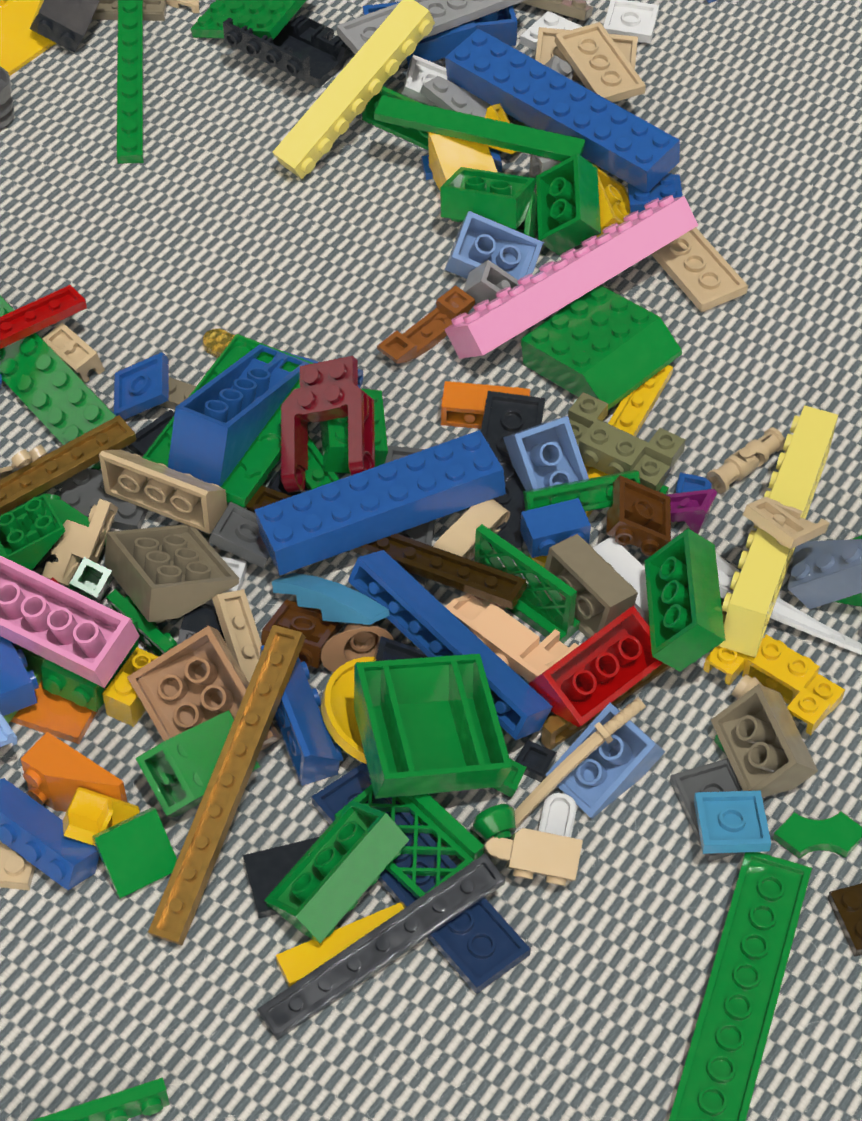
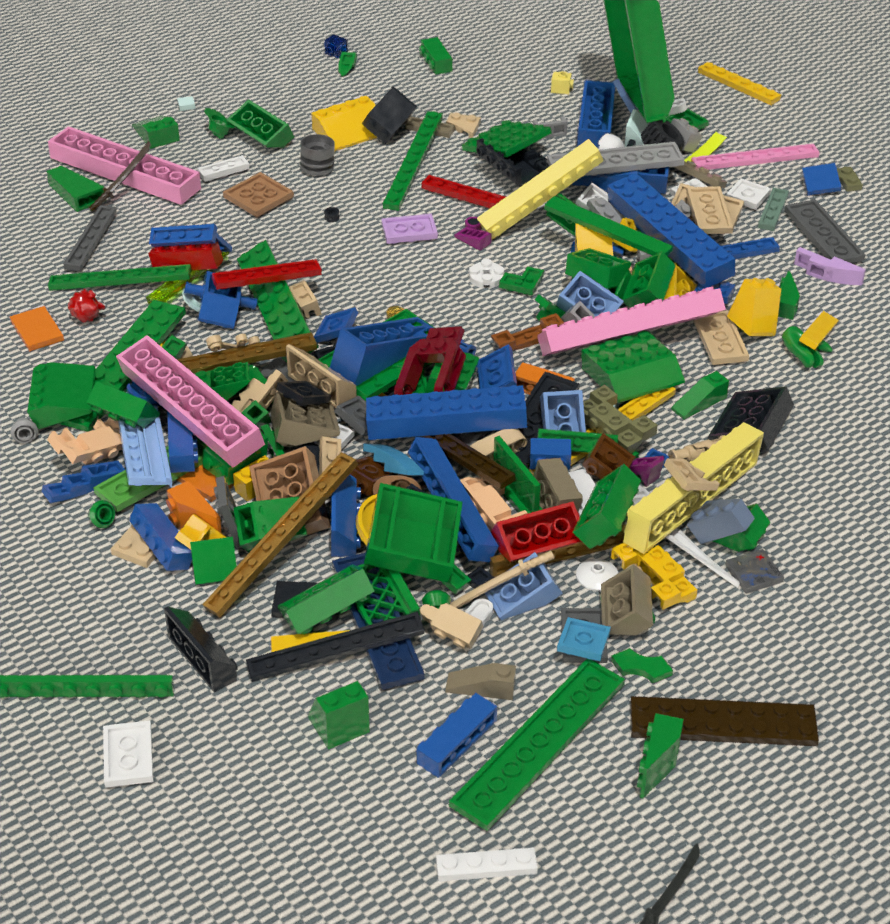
camera: 20 degrees right, 10 degrees down
(47, 199) = (331, 214): none -> black bush
(126, 764) = (226, 506): none -> dark grey plate
(150, 523) = (303, 393): none -> black plate
(175, 191) = (409, 228): none -> lavender plate
(182, 1014) = (200, 649): none -> black slope
(232, 110) = (461, 191): none -> red plate
(264, 160) = (472, 222): none -> magenta tile
(282, 184) = (473, 237): none -> magenta slope
(334, 244) = (486, 273): none -> white plate
(383, 245) = (523, 284): none -> green plate
(413, 406) = (497, 369): none -> blue tile
(438, 281) = (547, 308): none -> green slope
(444, 1063) = (341, 715): none -> green slope
(618, 933) = (487, 680): none -> dark tan slope
(619, 1038) = (456, 735): none -> blue brick
(673, 37) = (773, 209): none -> sand green tile
(674, 106) = (752, 248): none -> blue tile
(688, 711) = (595, 572): none -> white dish
(712, 368) = (702, 395): none -> green slope
(732, 209) = (756, 307): none -> yellow slope
(758, 177) = (789, 297): none -> green slope
(760, 60) = (824, 231): none -> dark grey plate
(790, 376) = (759, 408): none -> black slope
(794, 119) = (831, 270): none -> lavender slope
(808, 252) = (805, 354): none -> green piece
(824, 222) = (818, 330): none -> yellow tile

